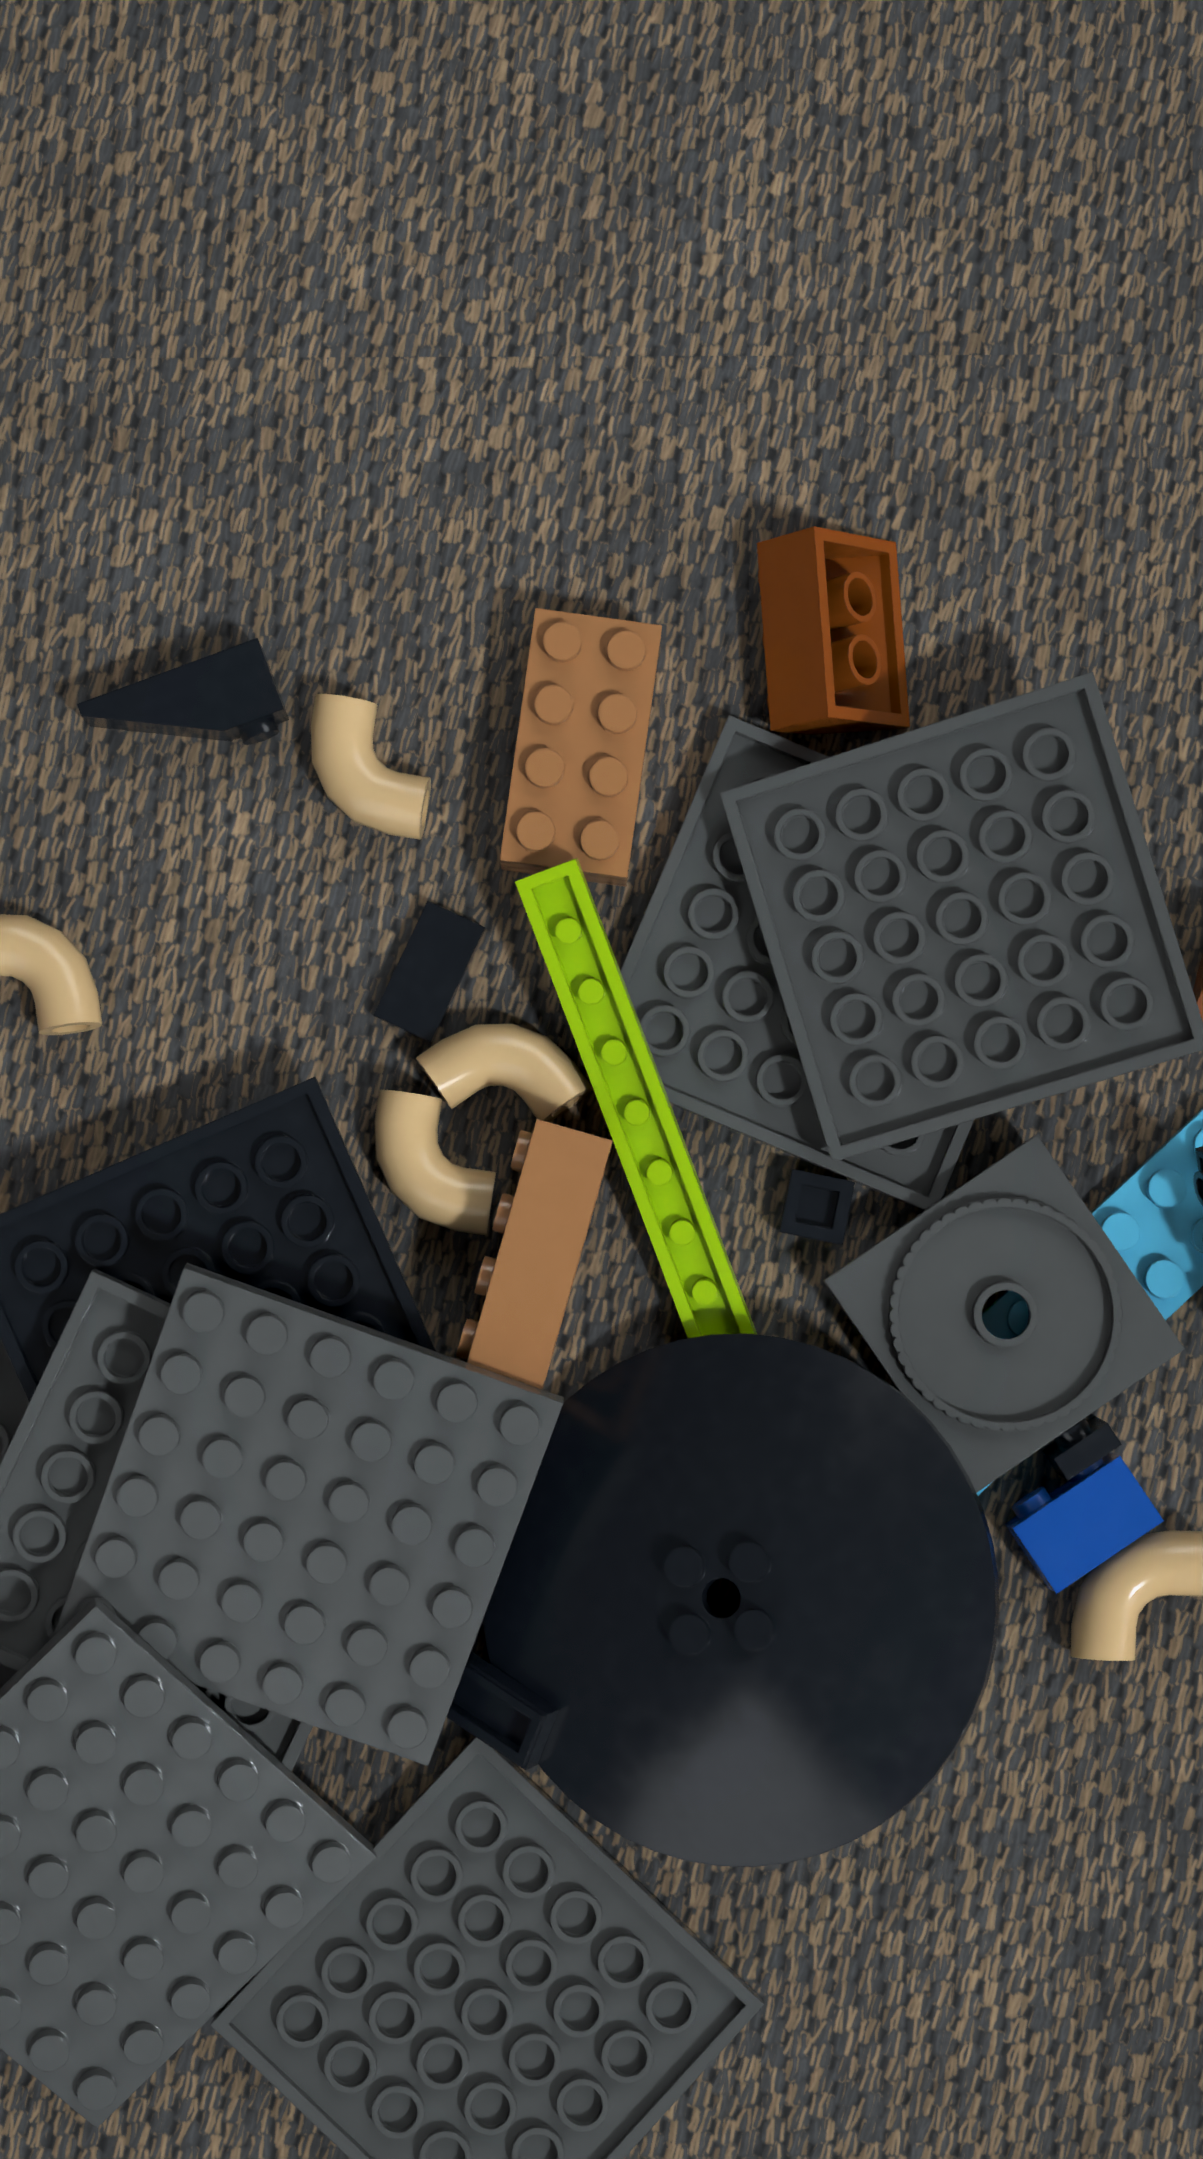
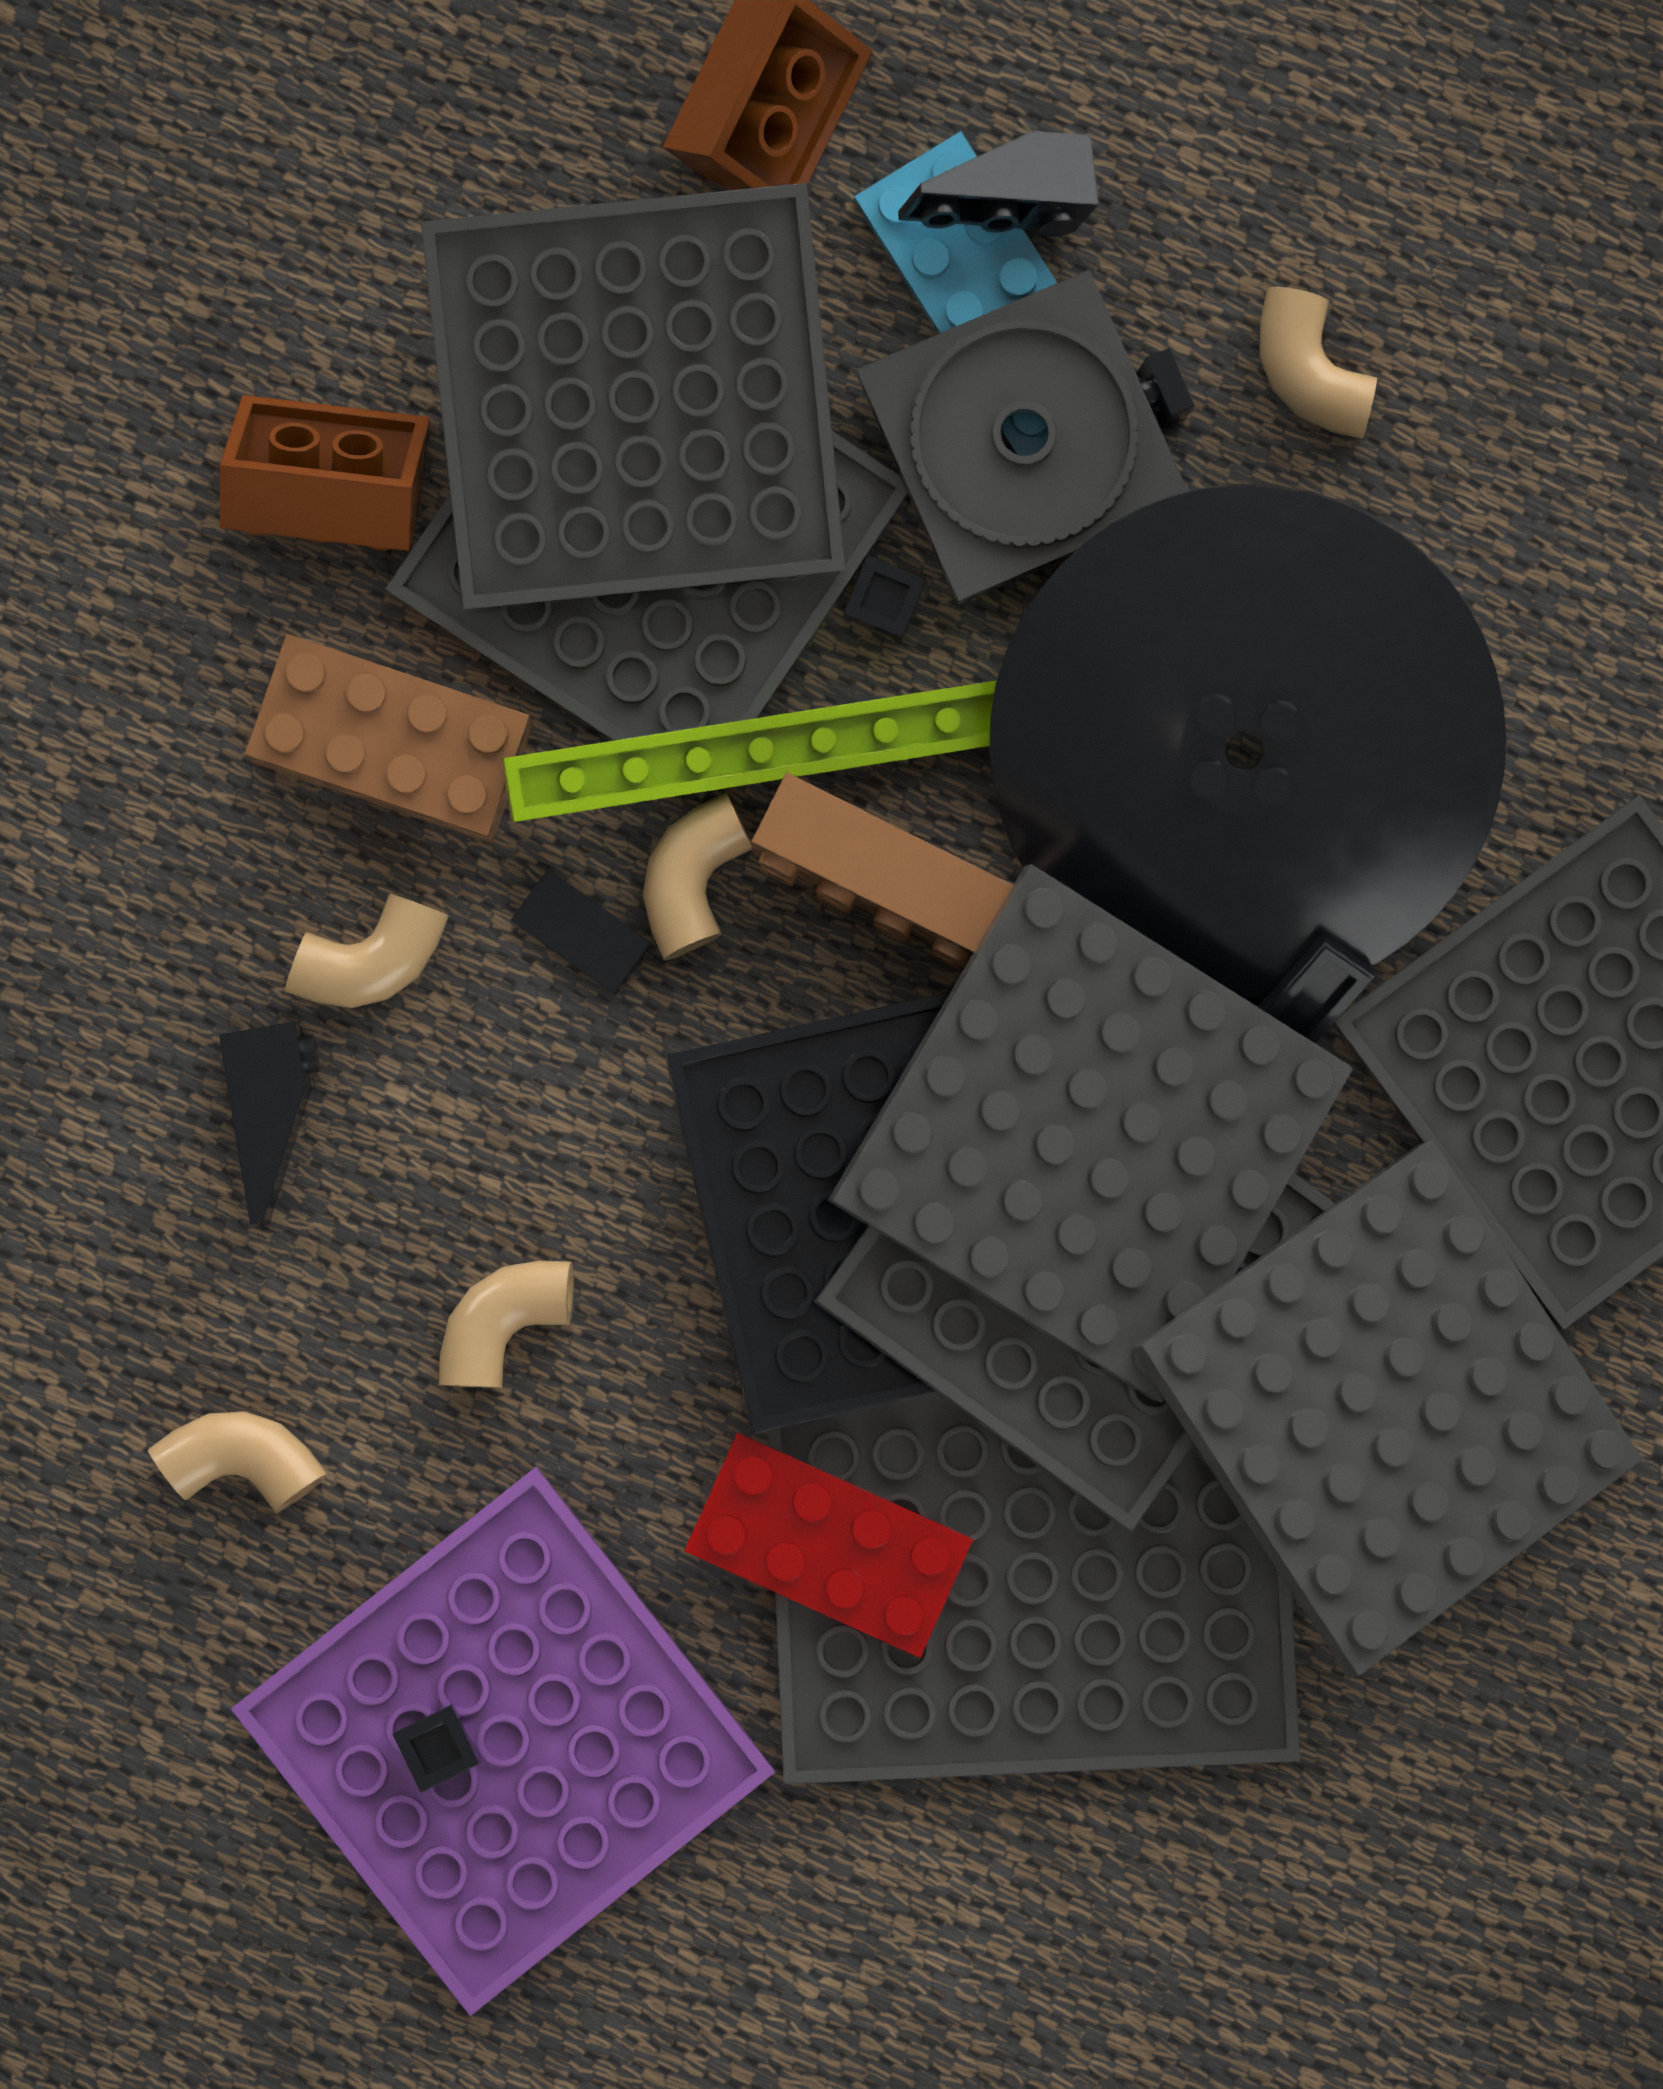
camera: 80 degrees left, 0 degrees up
(420, 1172) = (776, 976): tan cylinder -> none
(1082, 1521) = (1236, 402): blue brick -> none

